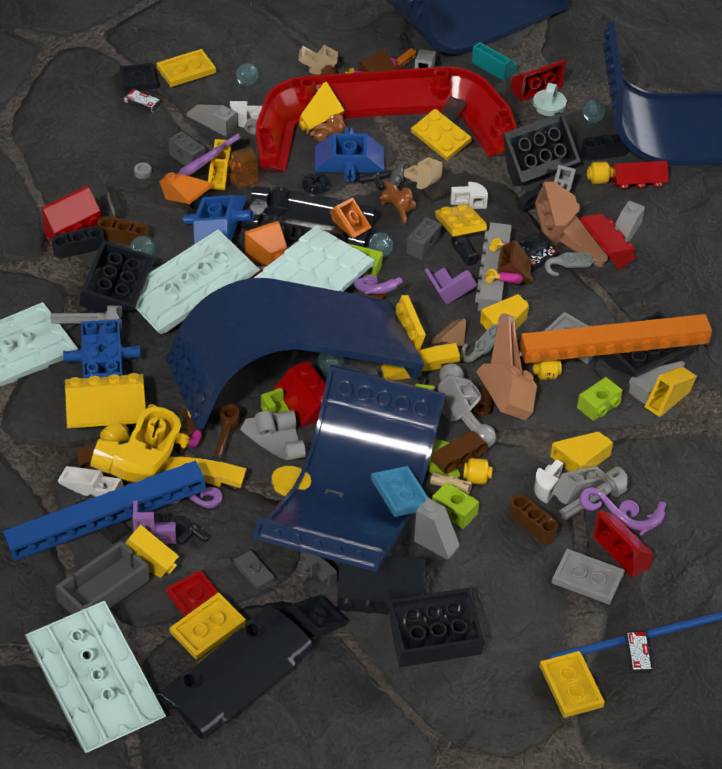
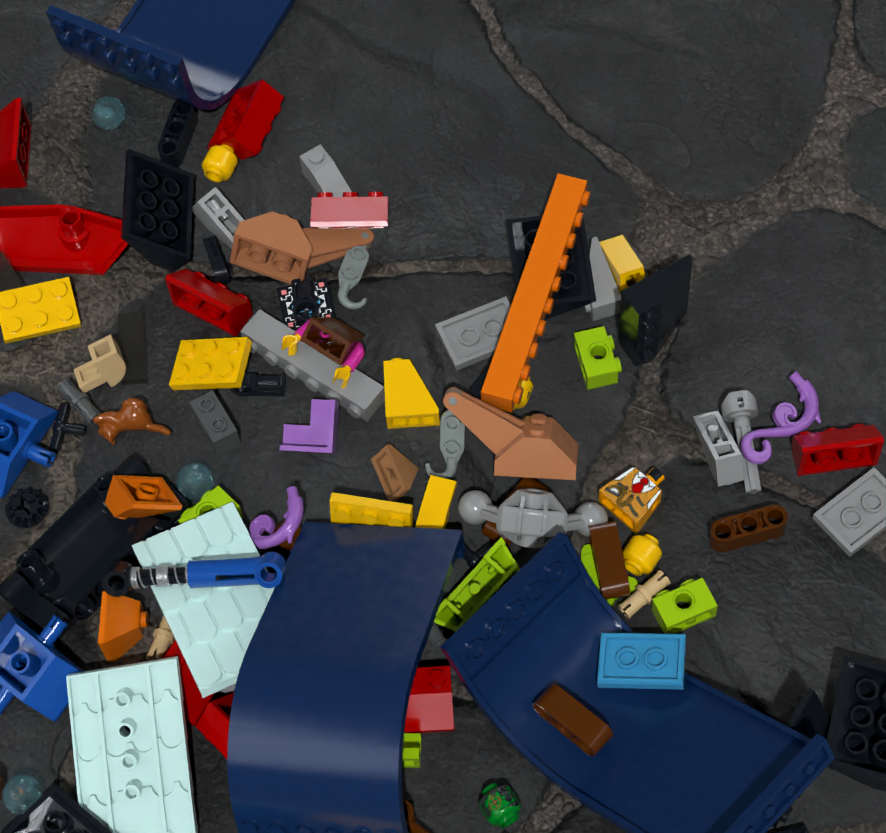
camera: 55 degrees left, 15 degrees up
(265, 462) = (500, 805): none -> green head
(275, 434) = (460, 769): light grey panel -> none
(285, 478) = (541, 793): yellow tile -> none
(313, 254) = (197, 574): none -> piece
(339, 470) = (573, 720): none -> reddish brown beam
(435, 529) = (722, 651): light grey slope -> none
(473, 194) = (169, 325): white brick -> none
(503, 200) = (209, 301): none -> red slope
(514, 453) = (633, 496): none -> torso
(547, 480) = (697, 486): white brick -> none
(549, 101) = (53, 154): light aqua tile -> none
(582, 451) = (673, 421): yellow slope -> none
(647, 402) = (654, 310): none -> black slope

